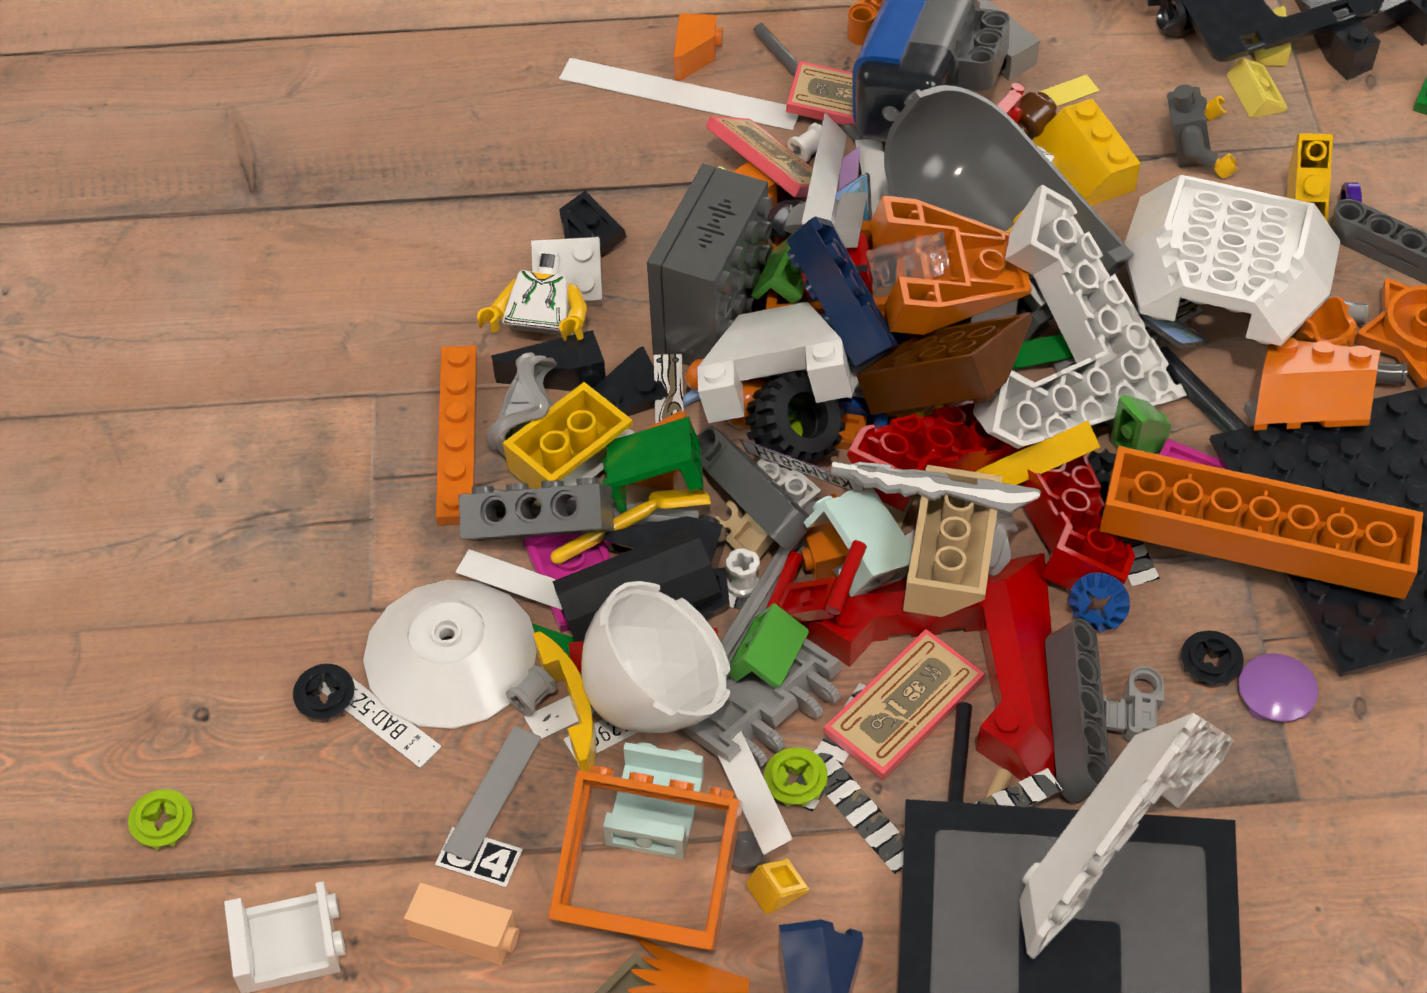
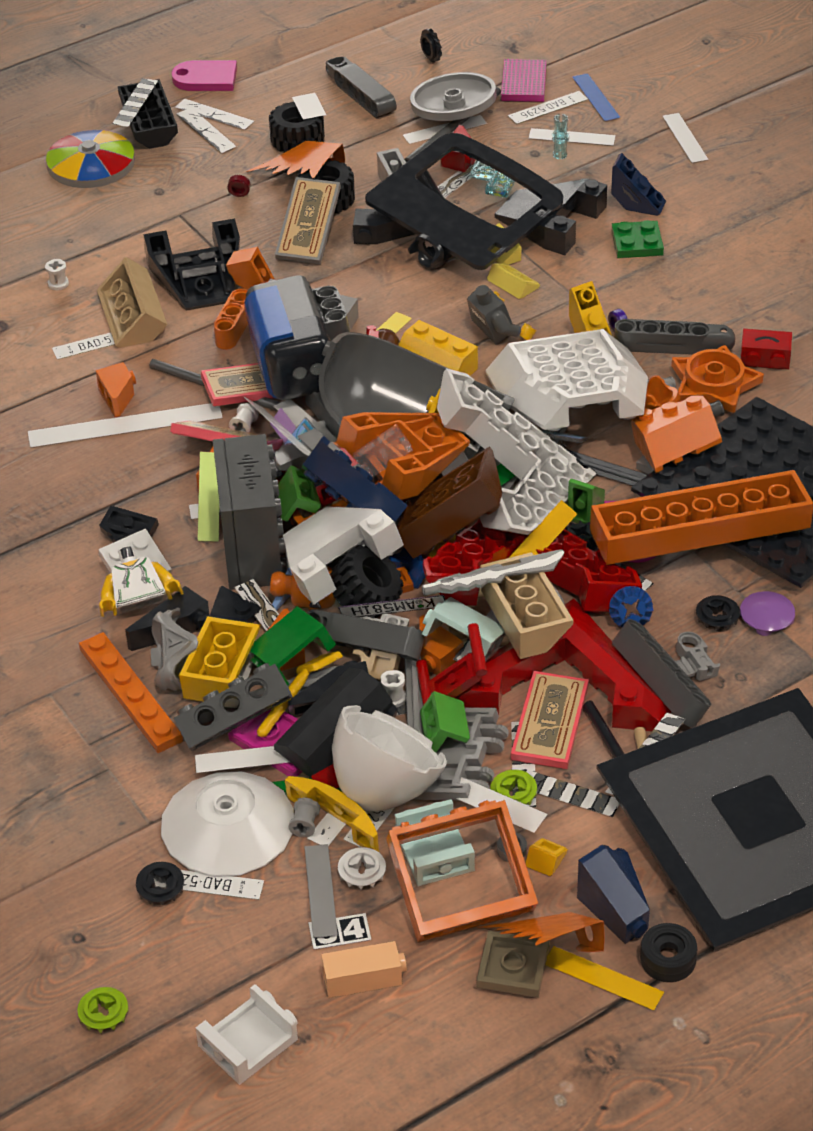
camera: 30 degrees left, 10 degrees down
(549, 774) = (351, 862): none -> white gear
(1157, 762) = (738, 710): white wedge -> none

